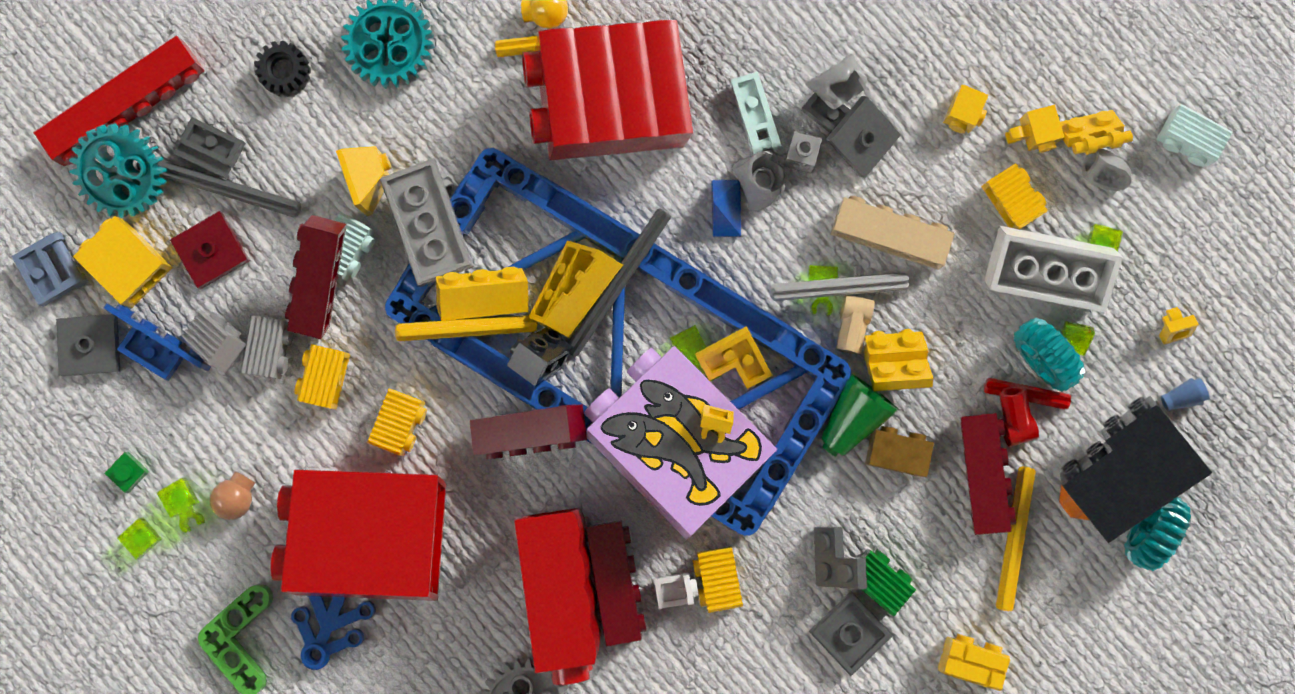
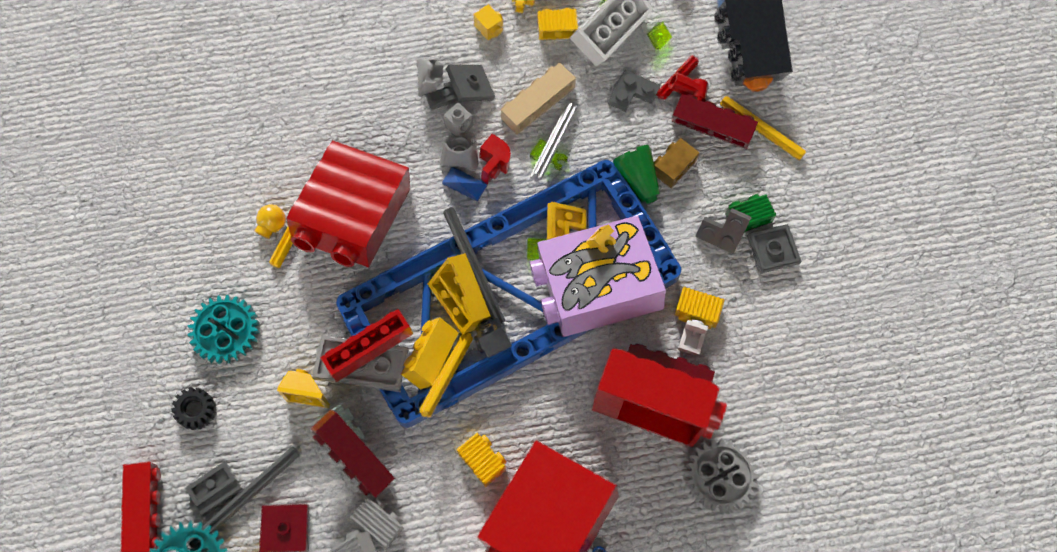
camera: 65 degrees left, 15 degrees down
(322, 376) = (420, 493): yellow brick -> none
(440, 219) = (366, 345): none -> red brick
(527, 430) = (538, 368): dark red brick -> none
(755, 112) = (416, 135): light aqua plate -> none
(783, 229) = (497, 155): none -> red brick
(855, 316) = (577, 144): tan piece -> none
(897, 360) = (618, 132): yellow plate -> none
(973, 662) = (827, 187): yellow brick -> none
(981, 341) = (631, 86): none -> dark grey plate
(1049, 354) = (661, 50): teal gear -> none
(1158, 535) = (803, 48): teal gear -> none

